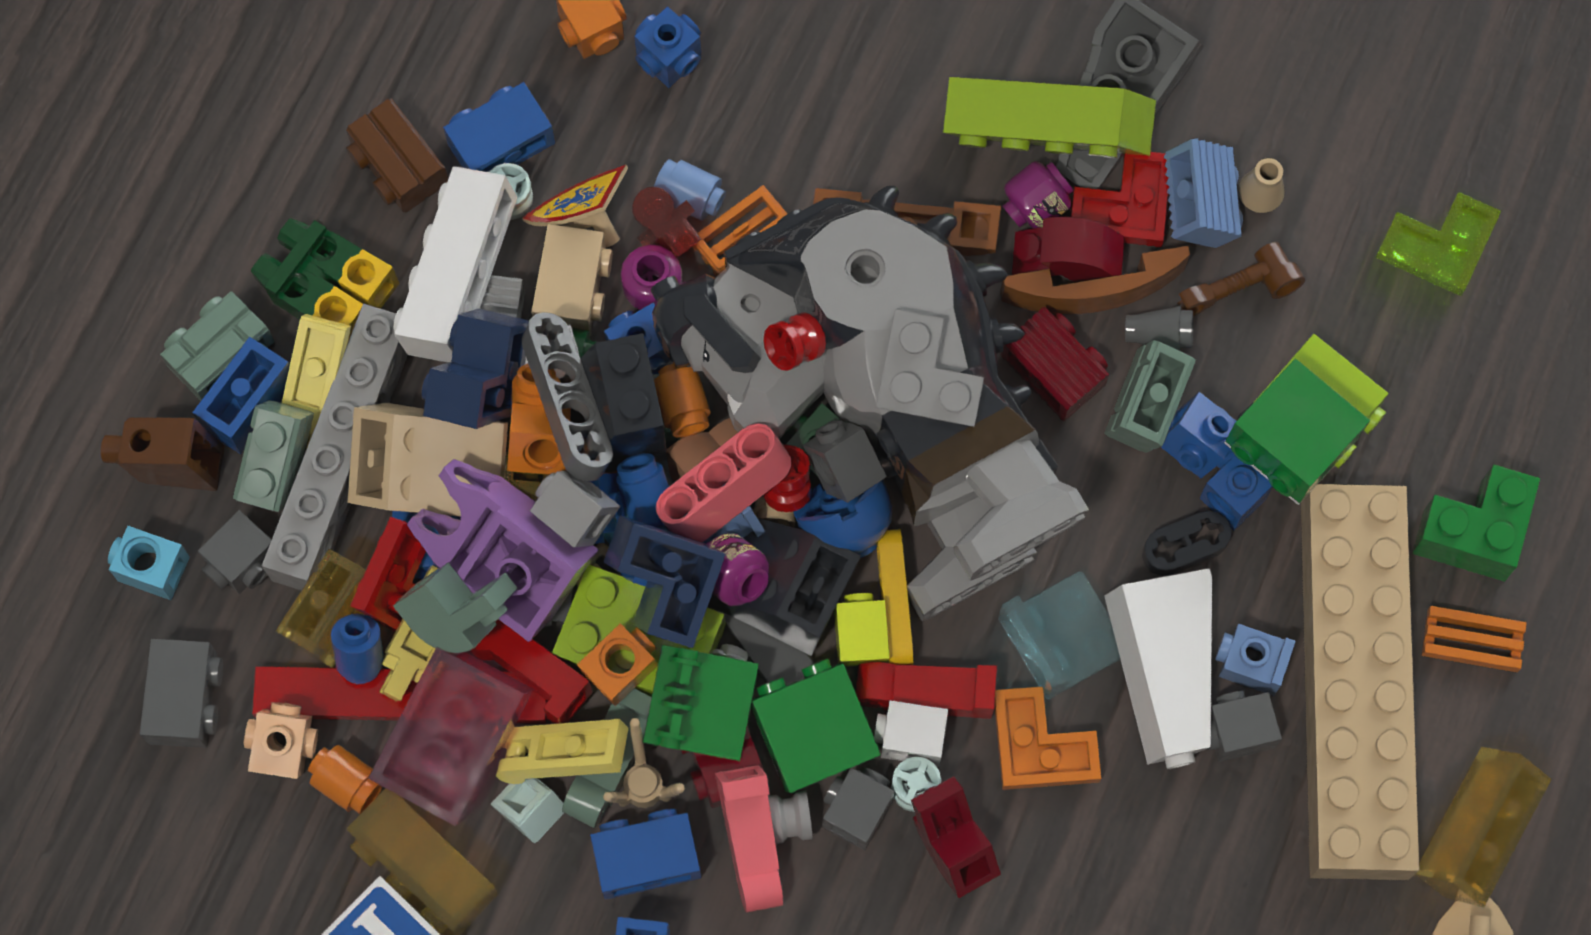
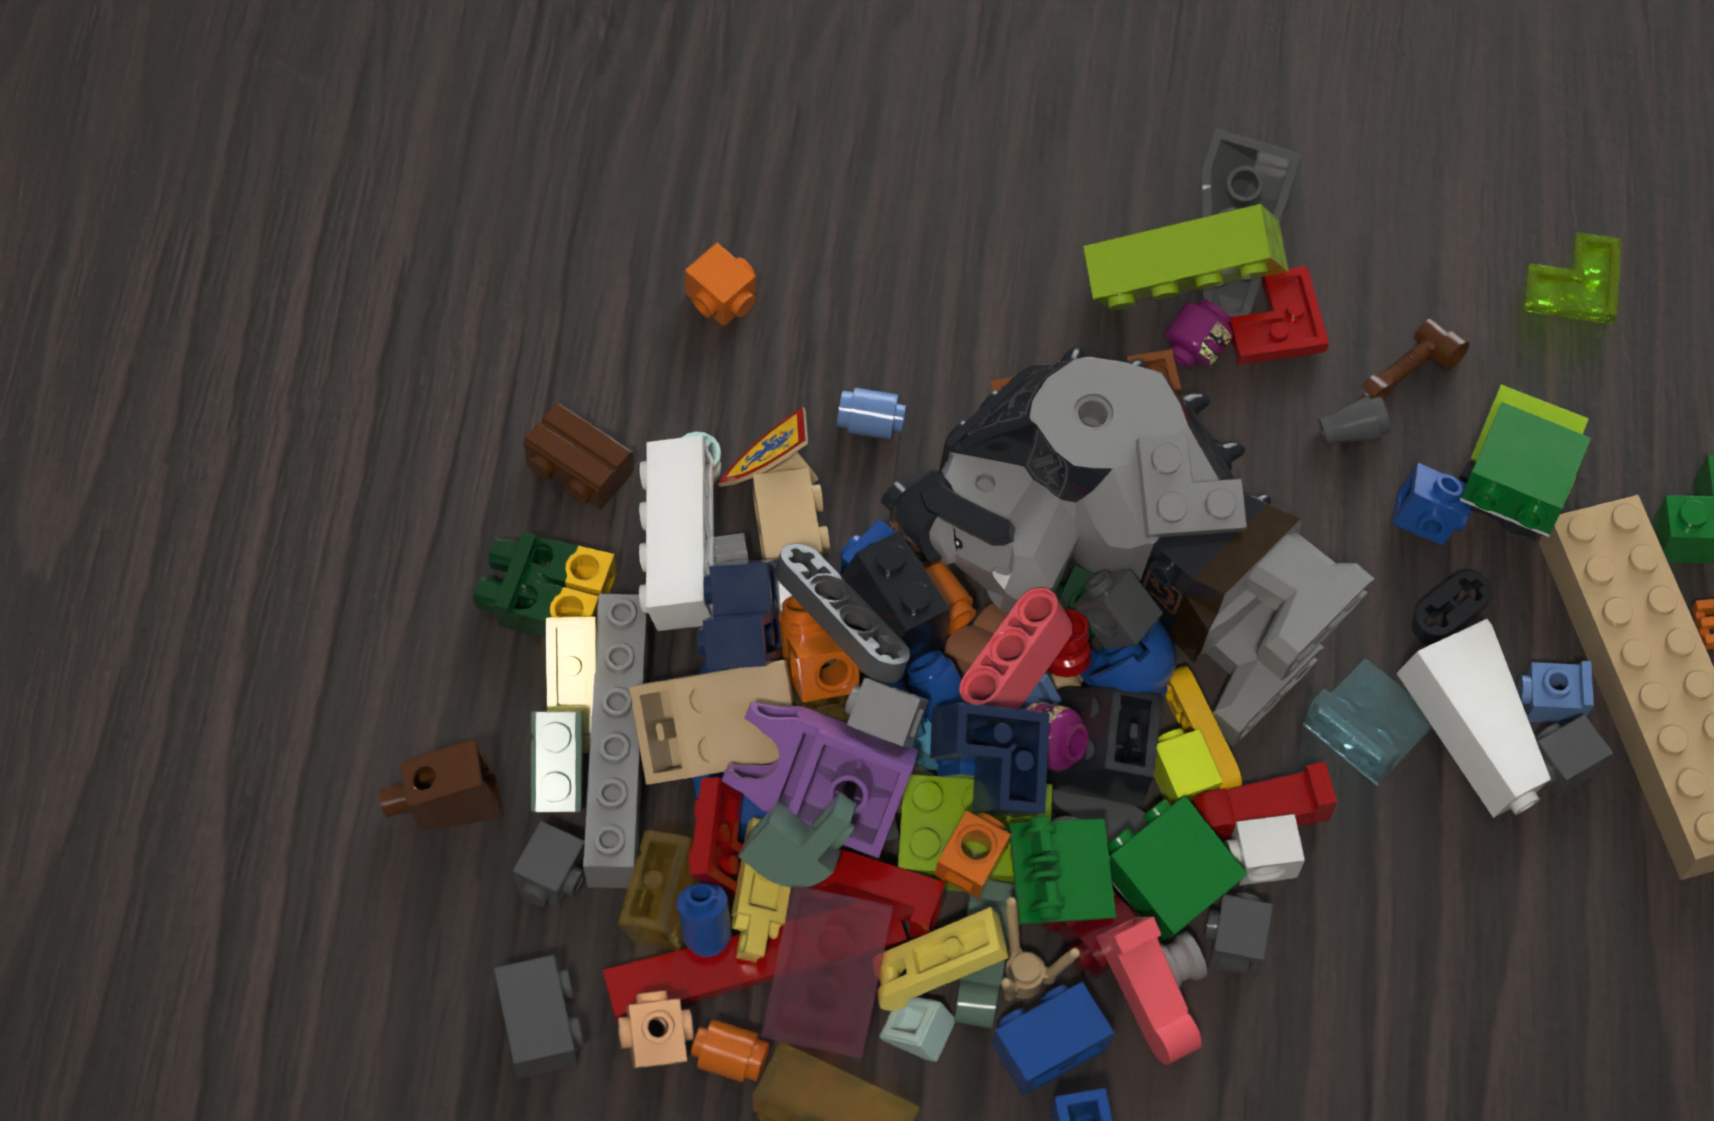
camera: 20 degrees left, 10 degrees down
(162, 576) = (473, 917): medium azure brick -> none
(211, 343) = (461, 677): sand green brick -> none
(247, 381) = (505, 711): blue brick -> none
(500, 131) = (674, 404): blue brick -> none
(644, 269) = (860, 497): magenta head -> none
(666, 225) = (868, 451): clear red hips -> none
(668, 46) = (805, 290): blue brick -> none
(711, 255) = (910, 469): orange tile -> none
(794, 341) = (1035, 499): red wheel -> none
(919, 775) = (1290, 886): light aqua wheel -> none
(954, 838) = (1339, 936): dark red brick -> none
(1030, 754) = (1386, 839): orange plate -> none
(1036, 289) = (1233, 420): dark orange slope -> none
(1057, 363) = (1270, 469): dark red brick -> none
(1069, 248) = (1247, 369): dark red brick -> none
(1150, 396) = (1372, 482): sand green brick -> none
(1203, 193) = (1350, 291): medium blue brick -> none
(1236, 491) = (1482, 544): blue brick -> none
(1263, 186) = (1400, 273): tan cone -> none

